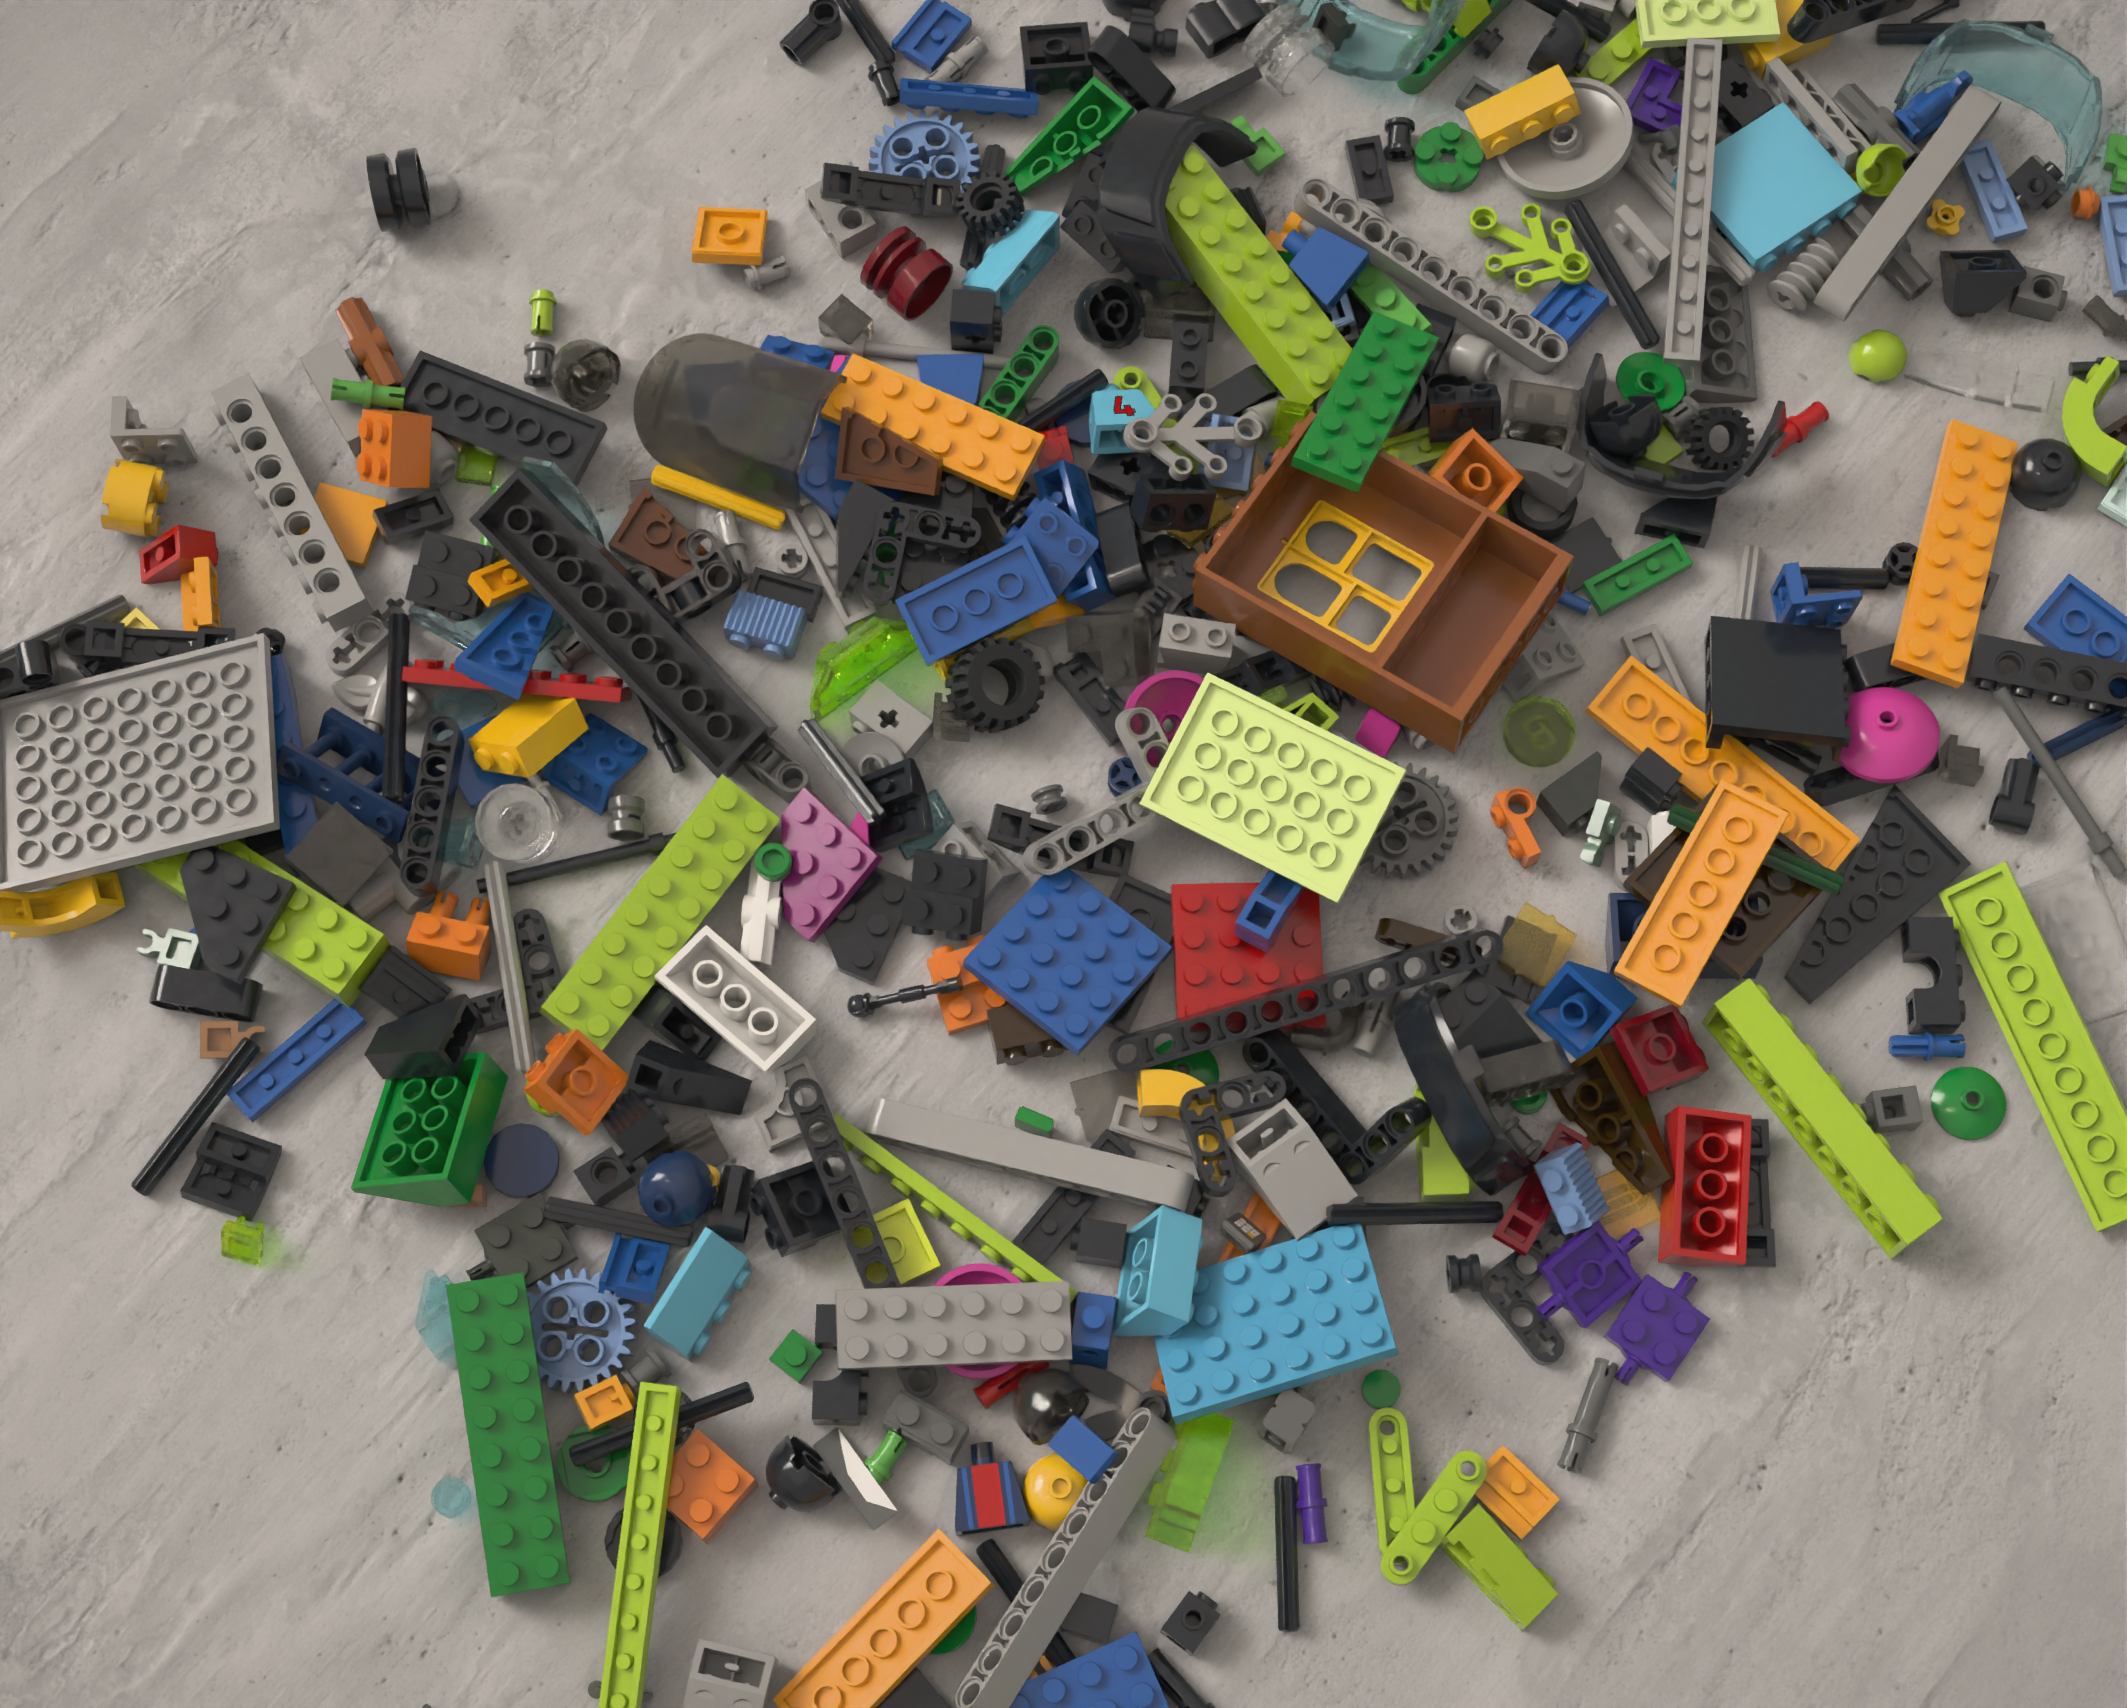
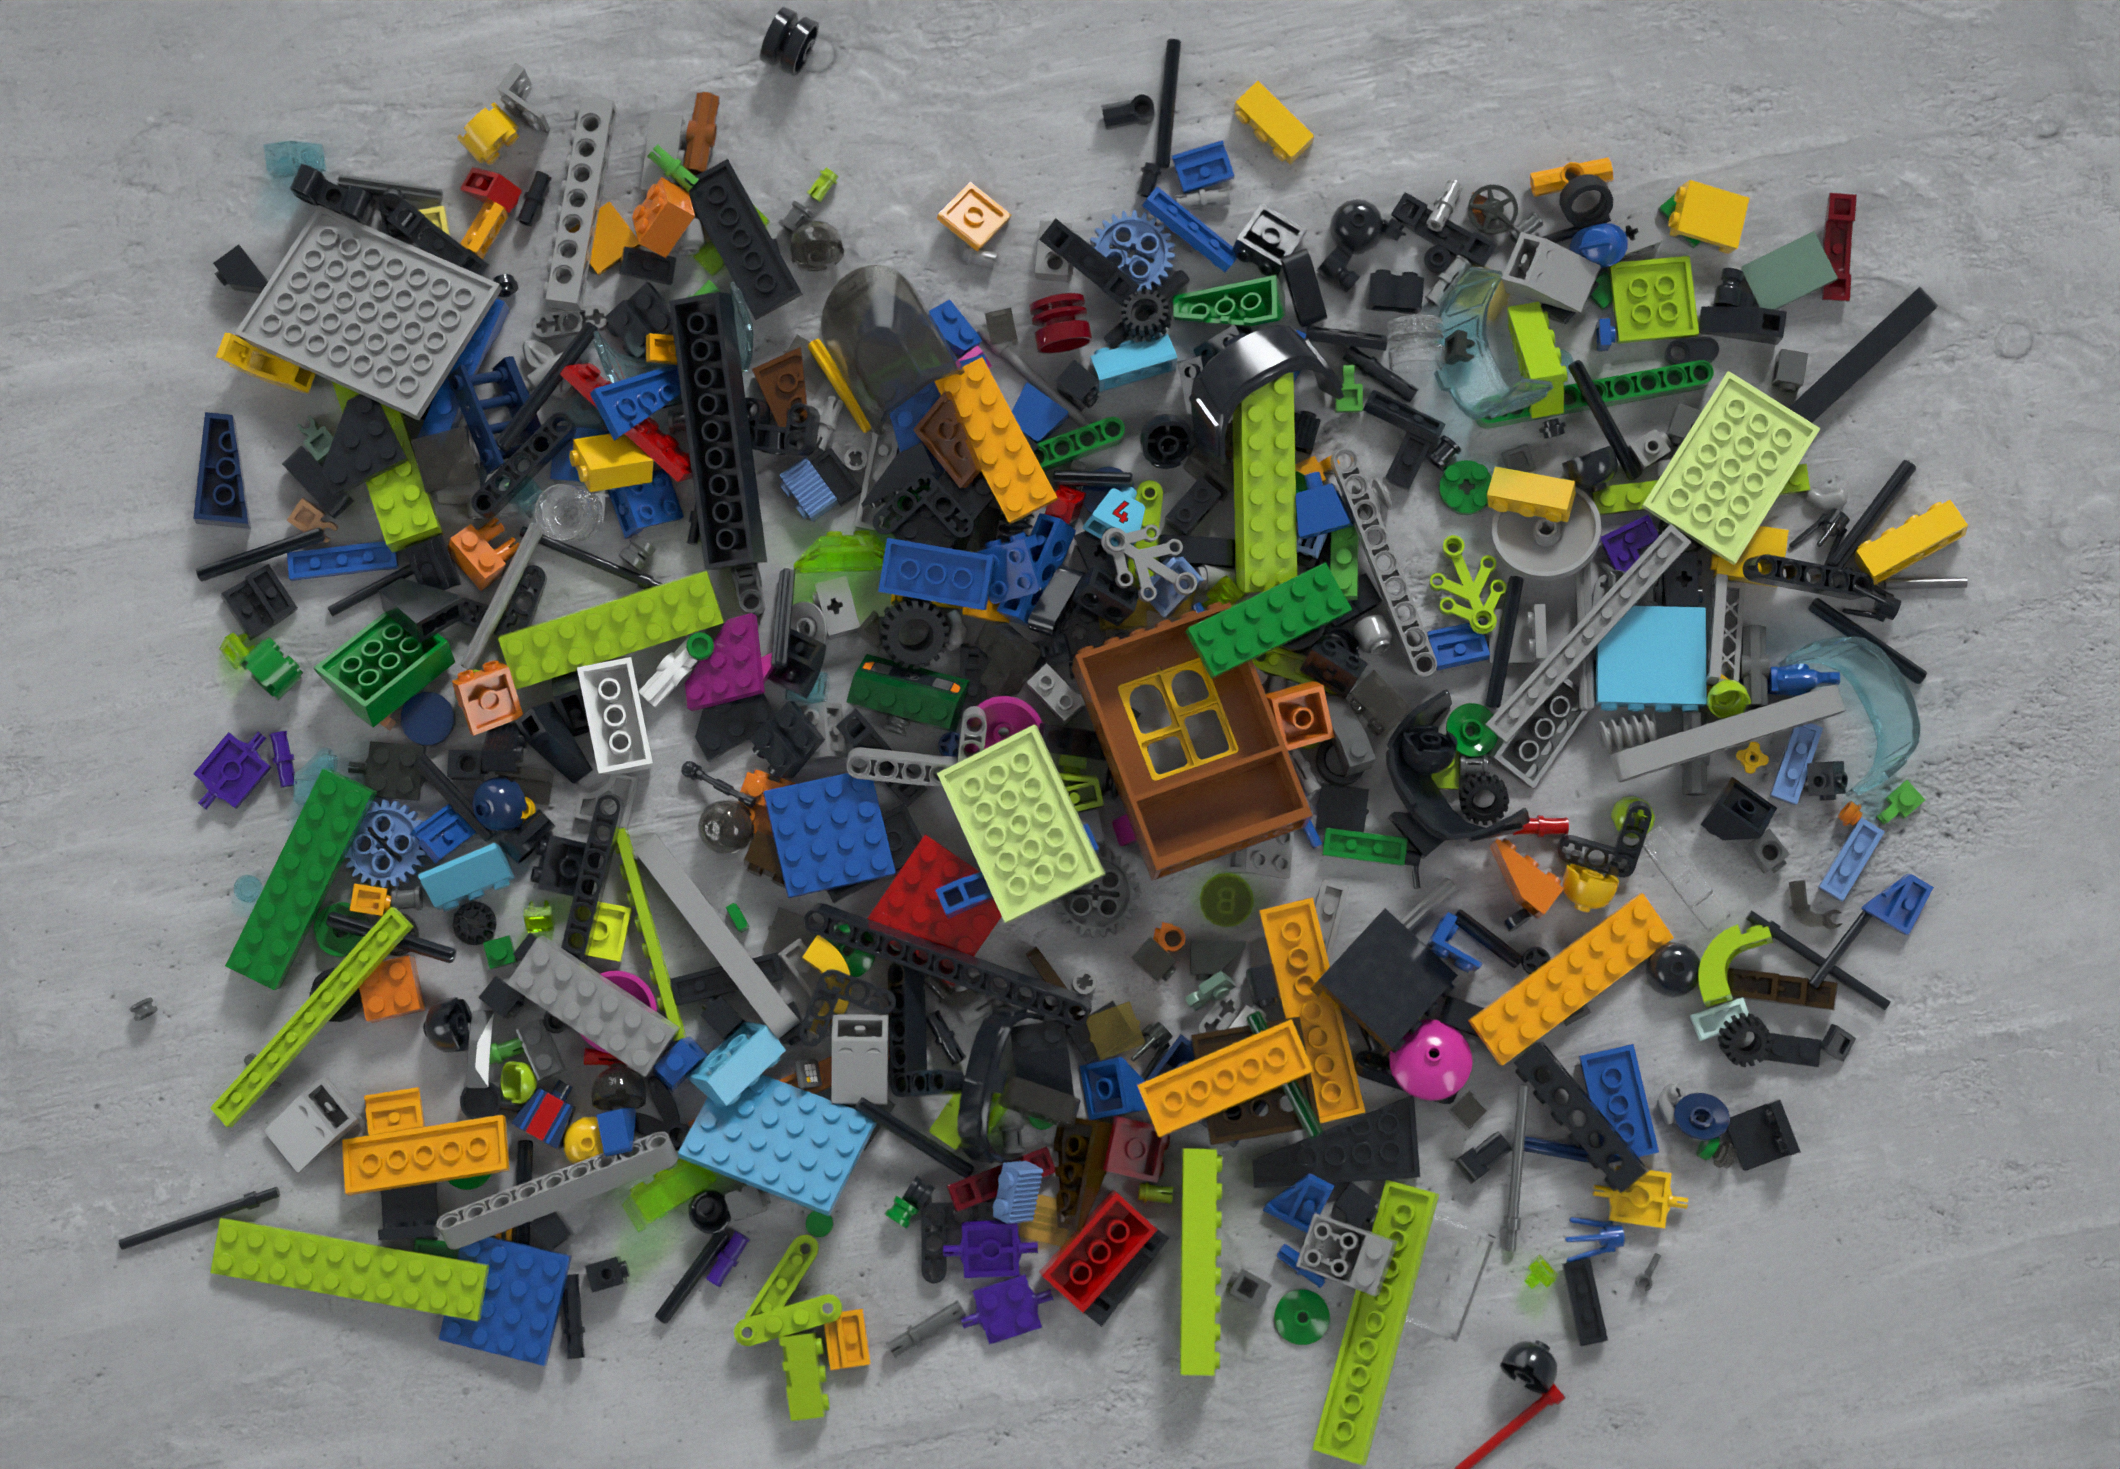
camera: 40 degrees right, 10 degrees up
(93, 1068) = (220, 481): none -> dark blue wedge
(233, 535) = (534, 198): none -> black pin
(301, 1228) = (271, 669): none -> green brick
(336, 1377) = (232, 770): none -> dark purple plate
(351, 1069) = (369, 591): none -> black bar
(387, 1322) = (283, 758): none -> dark purple pin
(756, 1356) = (478, 935): none -> black gear
(807, 1621) = (394, 1111): none -> light orange plate
(813, 1285) = (538, 918): none -> clear neon green tile
(906, 1533) = (485, 1102): none -> black piece
(926, 1482) = (518, 1082): none -> lime hair
(947, 1034) = (726, 826): none -> clear smoke cylinder
(1038, 754) = (908, 693): none -> dark green slope
(1252, 1464) = (709, 1211): none -> black hair
(1273, 108) = (1375, 370): none -> black pin
(1331, 131) = (1404, 417): none -> black tile
(1360, 1087) = (945, 1038): none -> black pin
(1461, 1307) = (901, 1212): none -> green wheel
(1523, 832) = (1154, 961): none -> pearl dark grey slope
(1585, 923) = (1156, 1037): none -> pearl dark grey plant
(1698, 552) = (1413, 859): none -> black hand
(1712, 1086) = (1155, 1193): none -> lime pin
(1827, 485) = (1526, 882): none -> orange slope
(1850, 535) = (1517, 919): none -> black tile
(1873, 980) = (1300, 1202): none -> blue wing
(1894, 393) = (1619, 852): none -> black beam
(1896, 452) = (1588, 887): none -> yellow cylinder
(1970, 991) = (1346, 1254): none -> light grey slope

